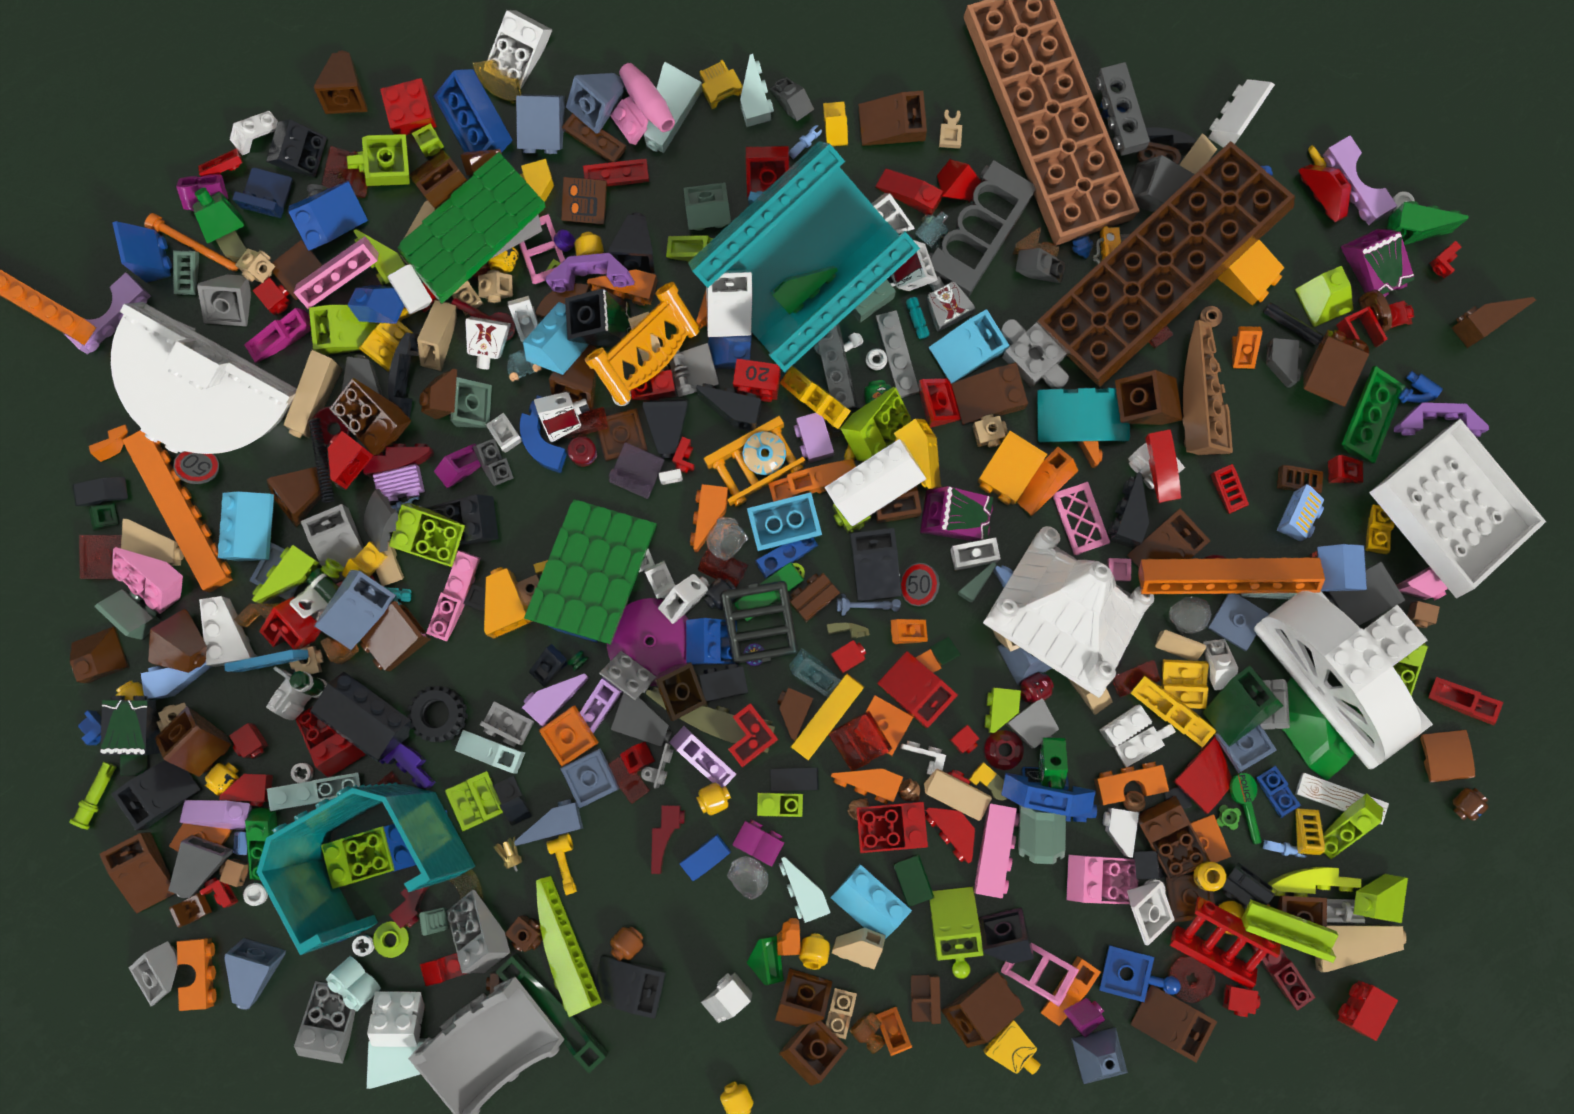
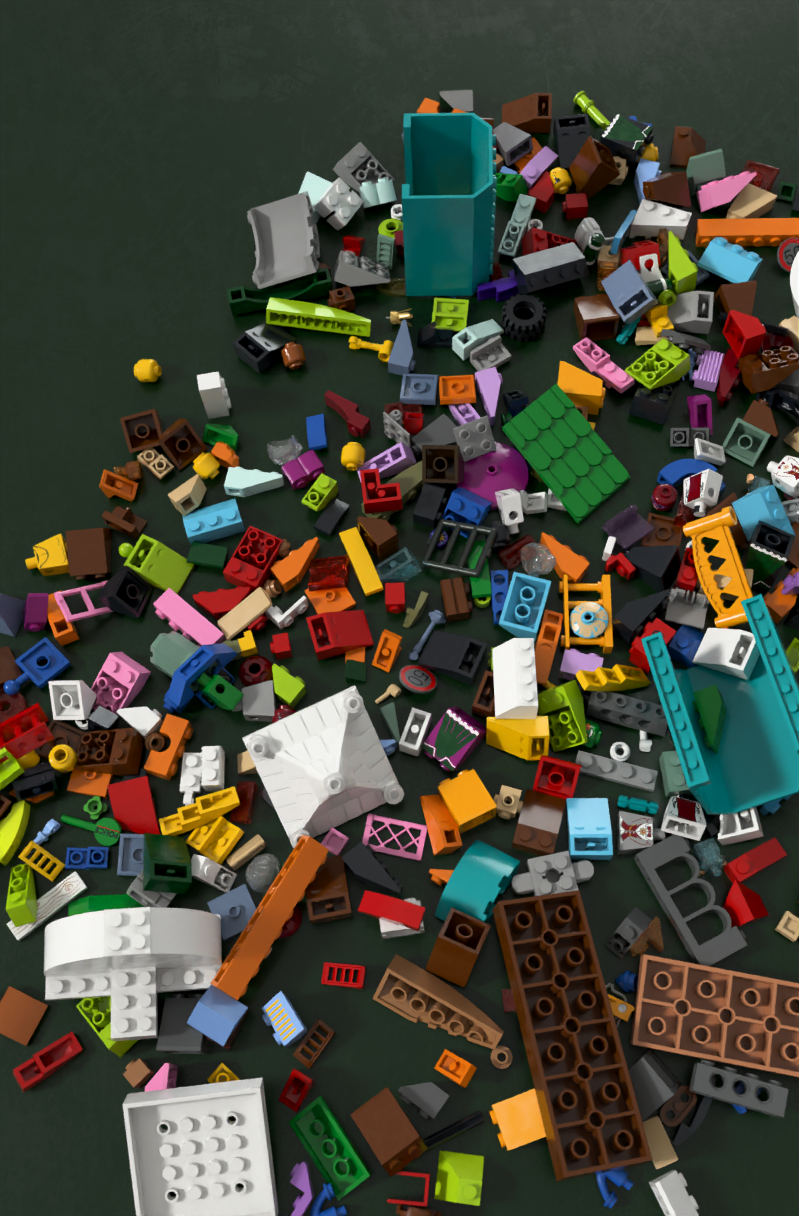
camera: 125 degrees right, 15 degrees down
(942, 603) = (392, 690): none -> tan hand

